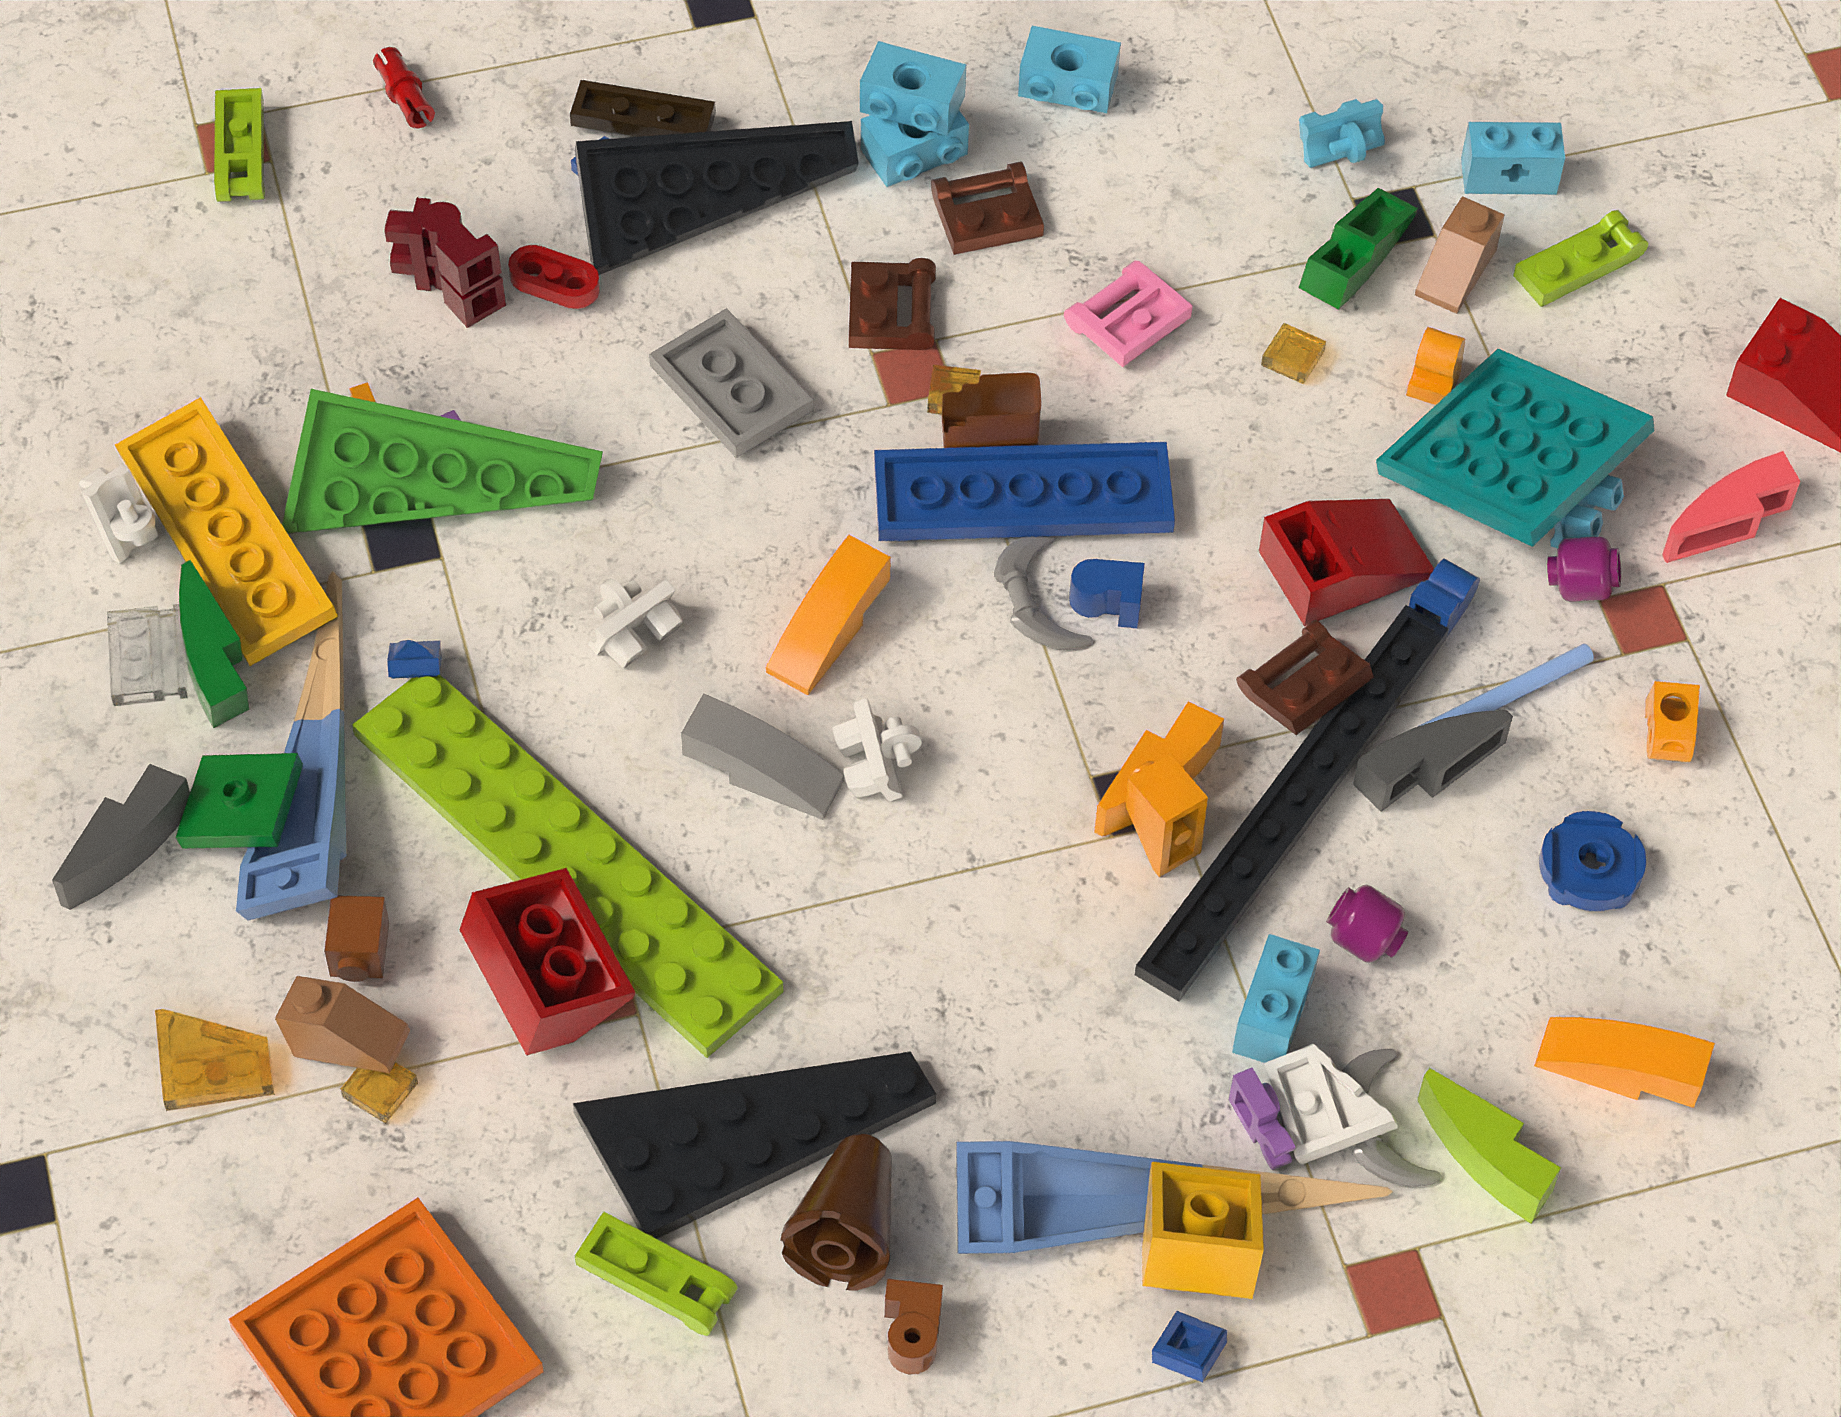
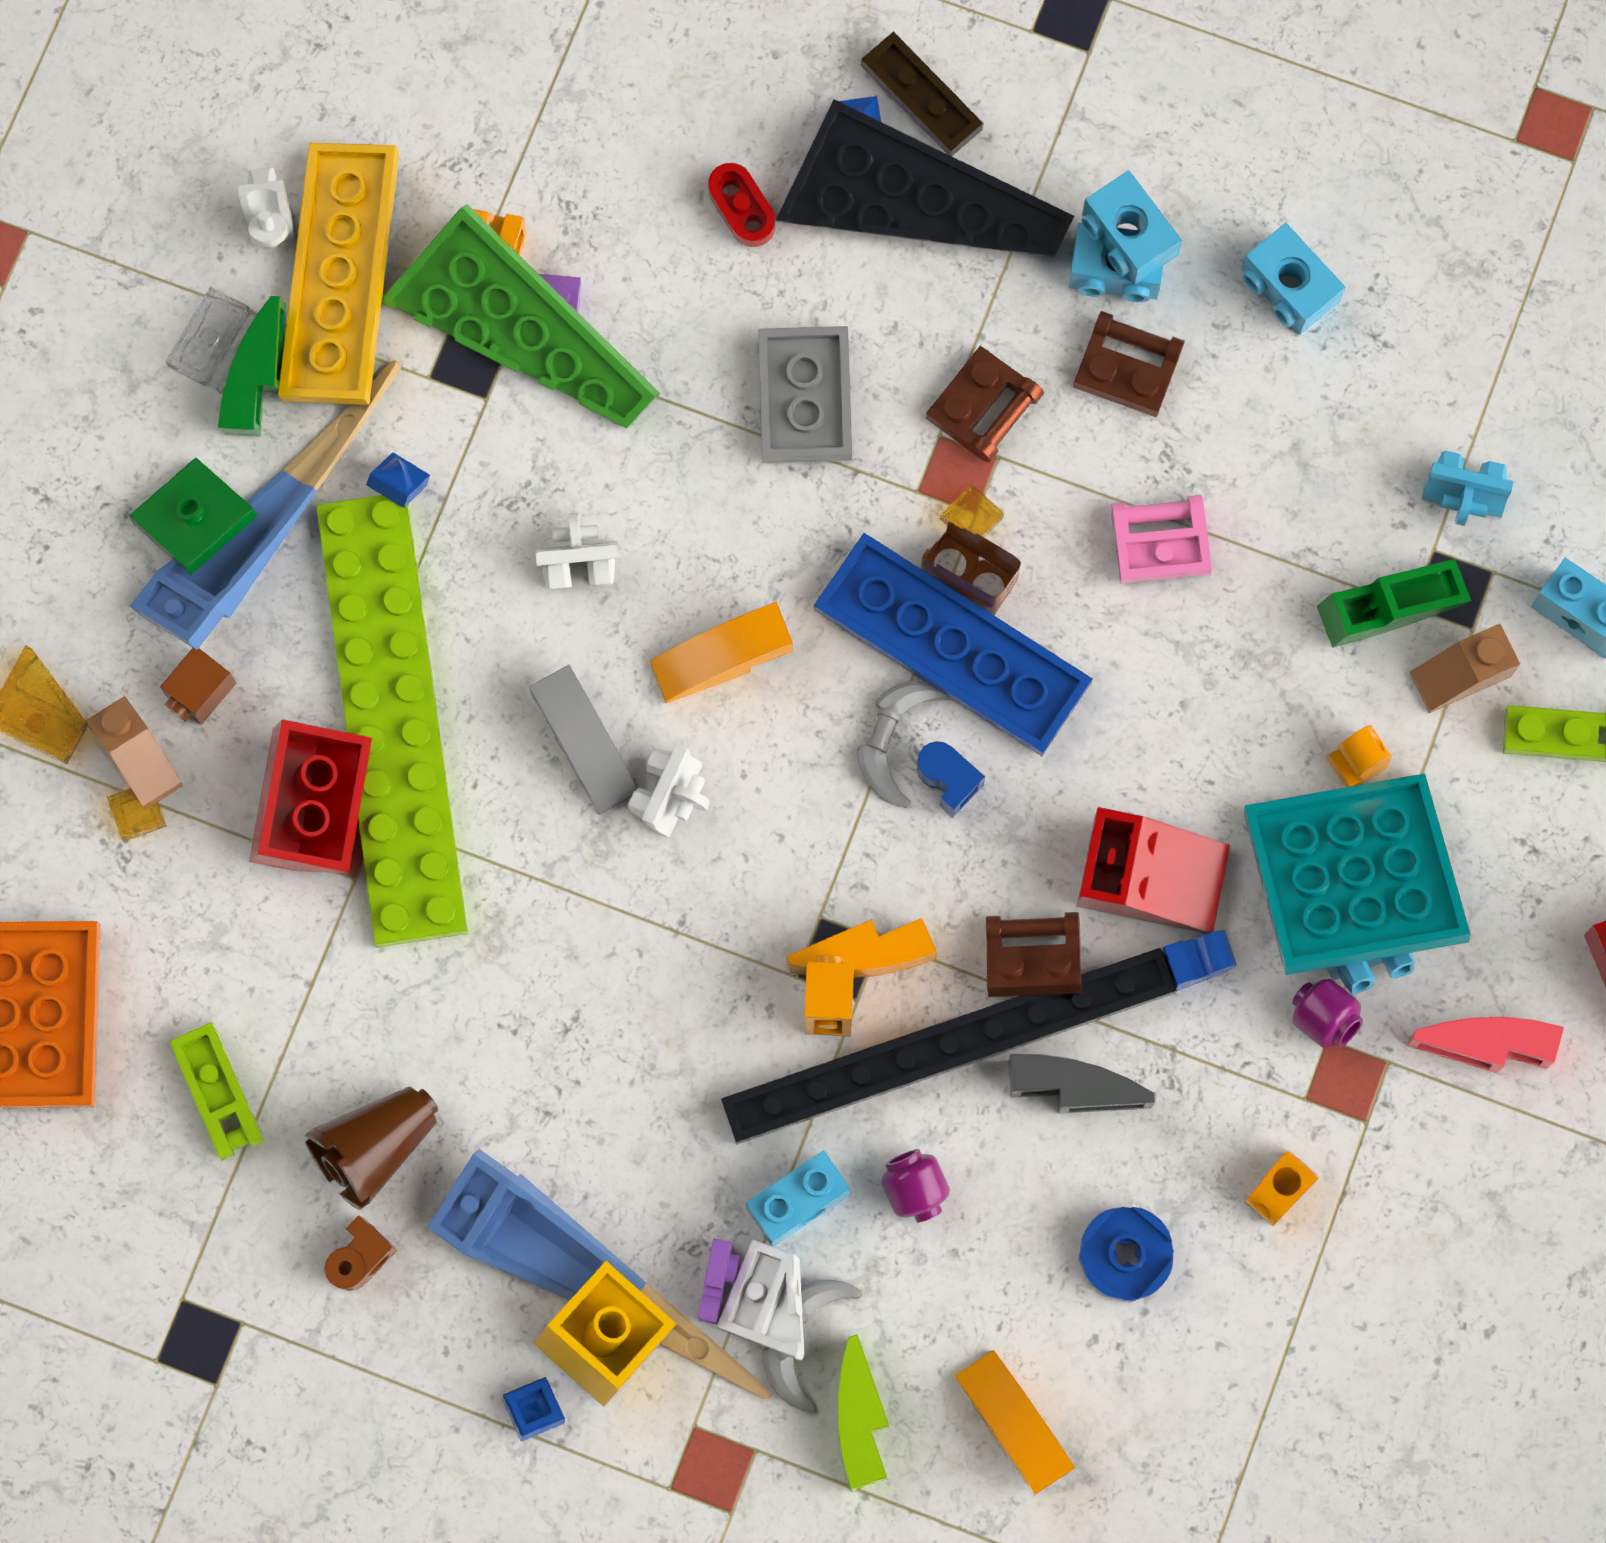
camera: 40 degrees right, 20 degrees up
(122, 836) = (92, 489): dark grey slope -> none
(446, 255) = (664, 134): dark red hips -> none
(718, 1141) = (333, 1020): black wing -> none
(1293, 353) = (1264, 662): clear yellow tile -> none
(1524, 683) = (1184, 1070): light blue bar -> none

